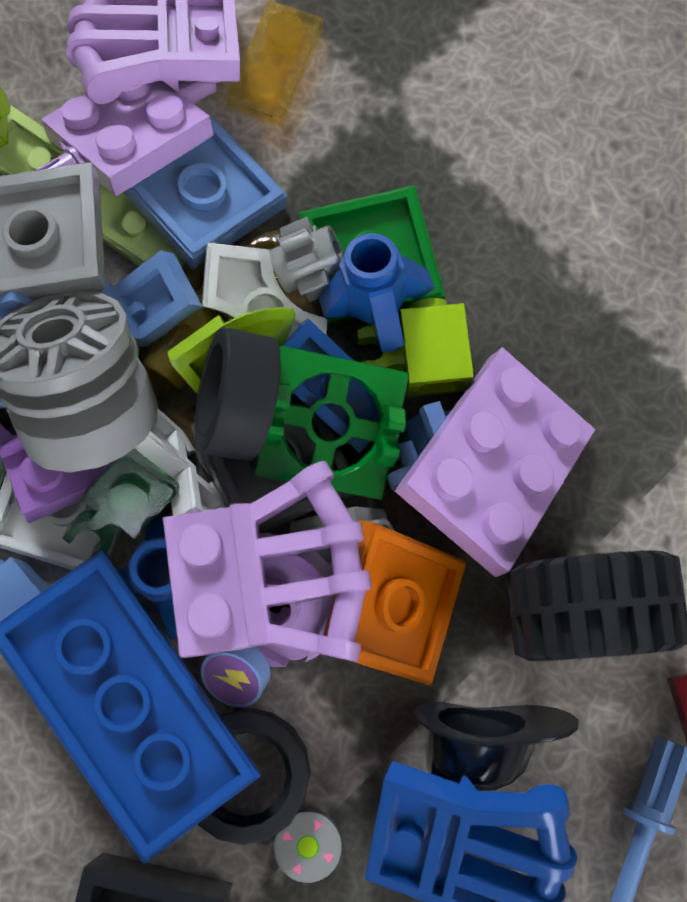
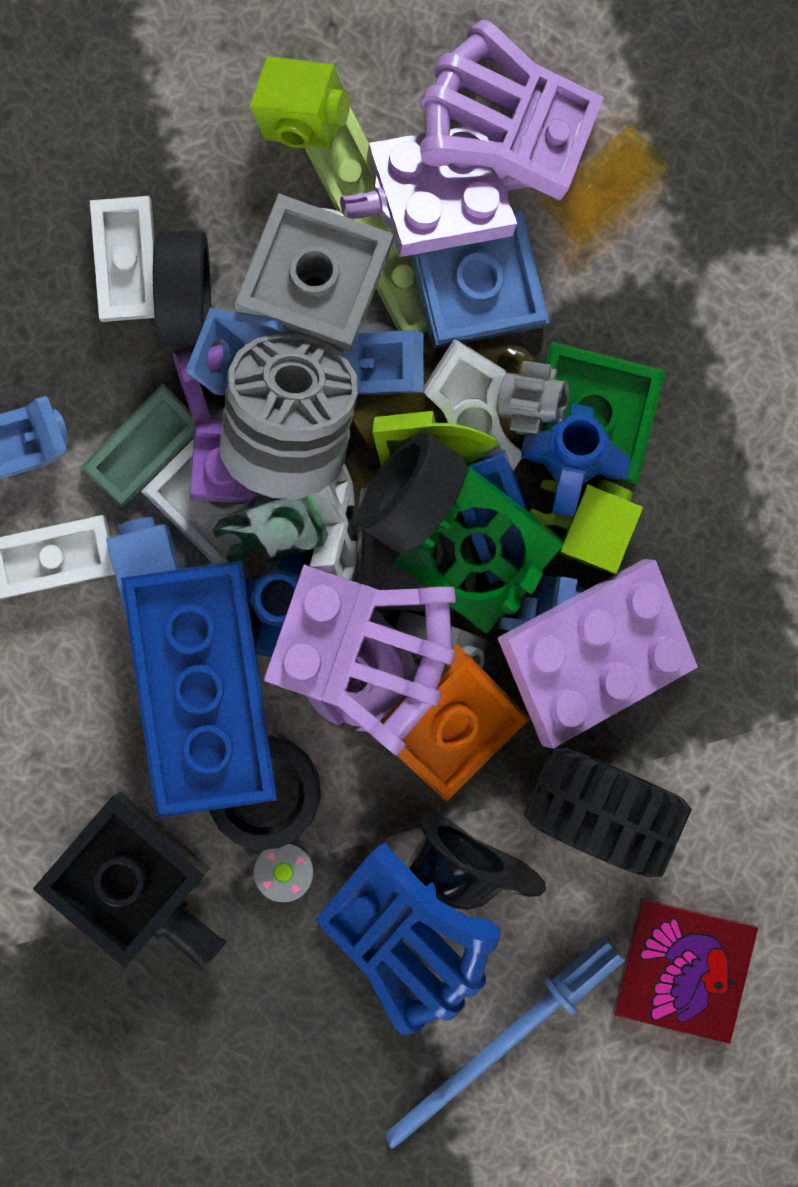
camera: 30 degrees right, 10 degrees up
(236, 676) = (294, 714): tile -> none

